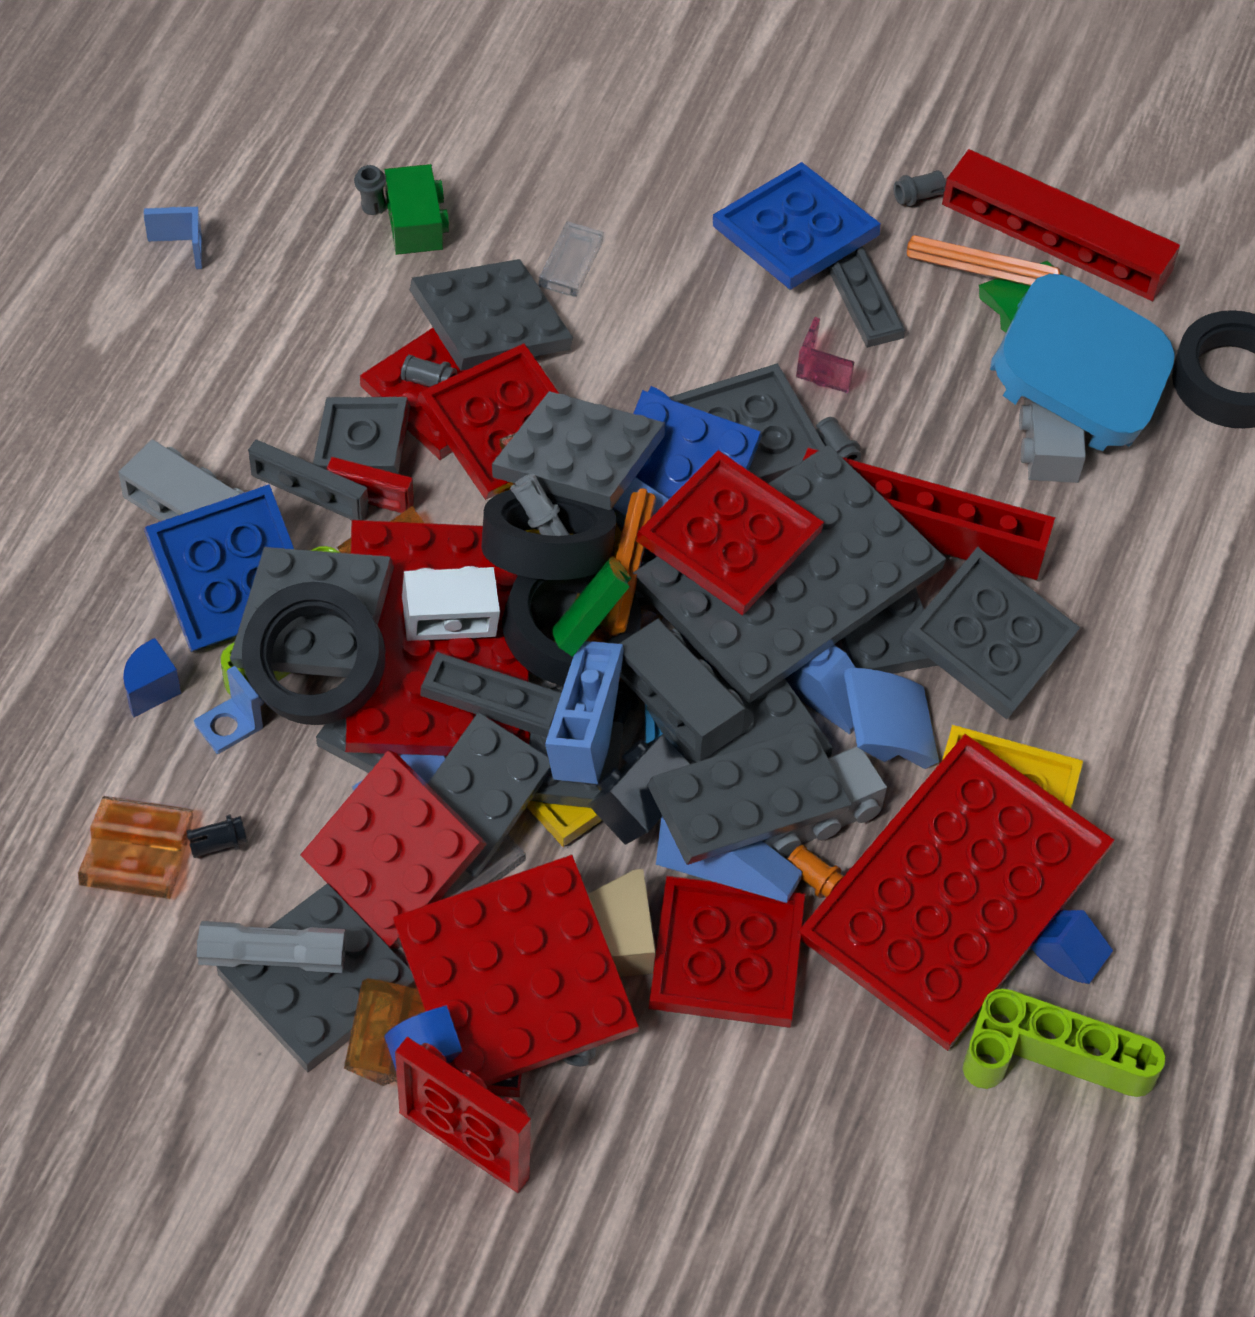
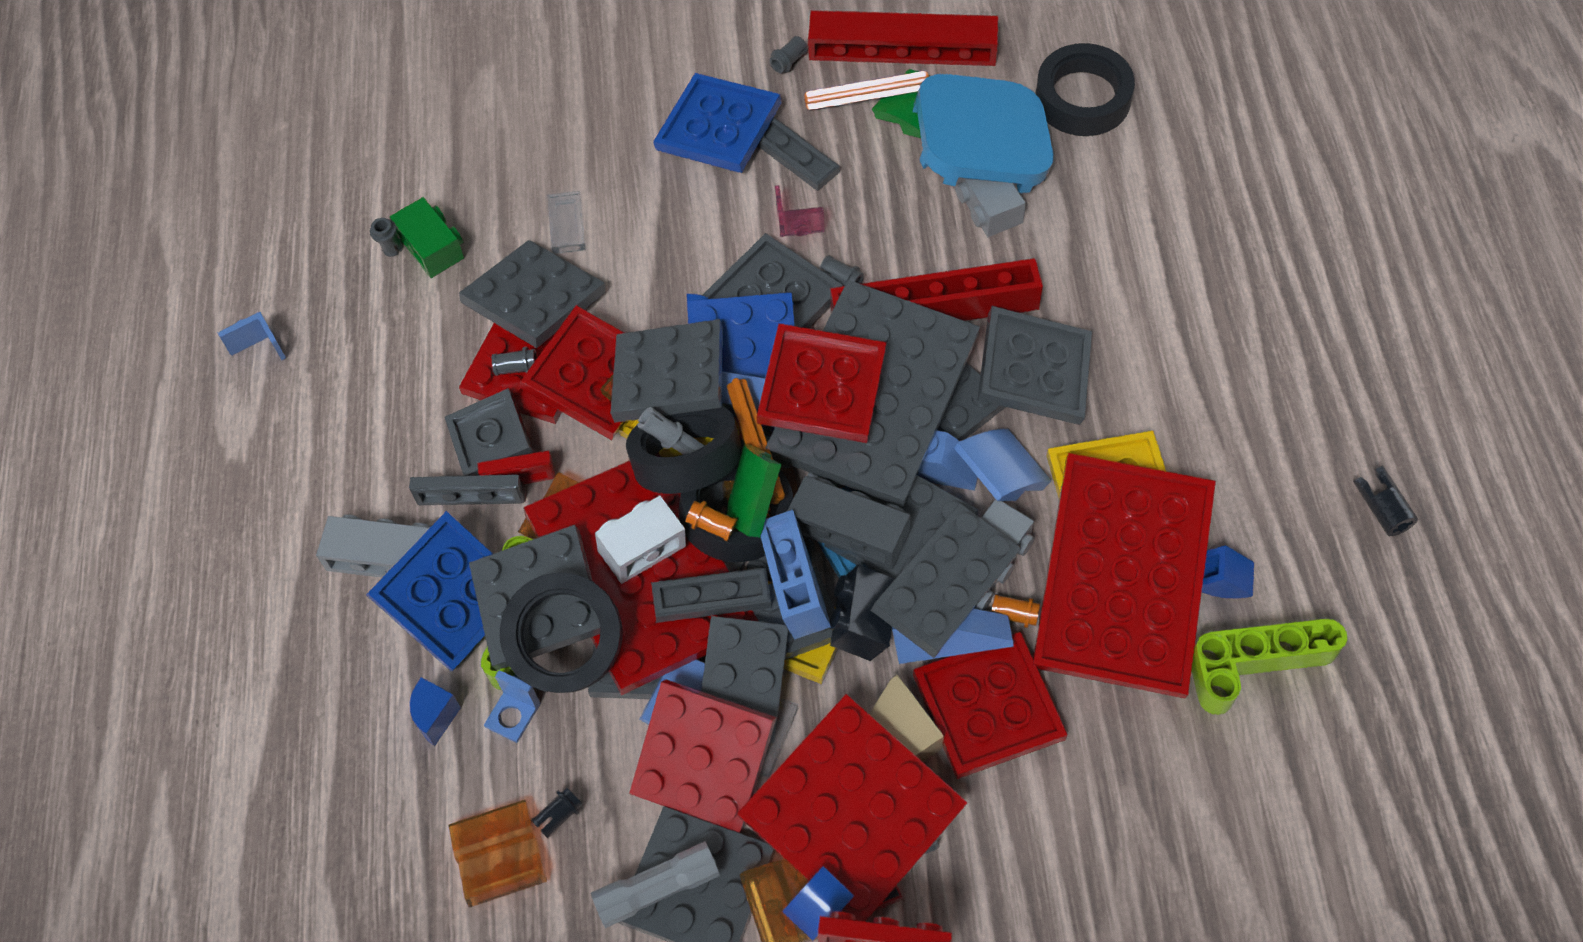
camera: 20 degrees left, 5 degrees up
(530, 614) = (710, 520): none -> orange pin

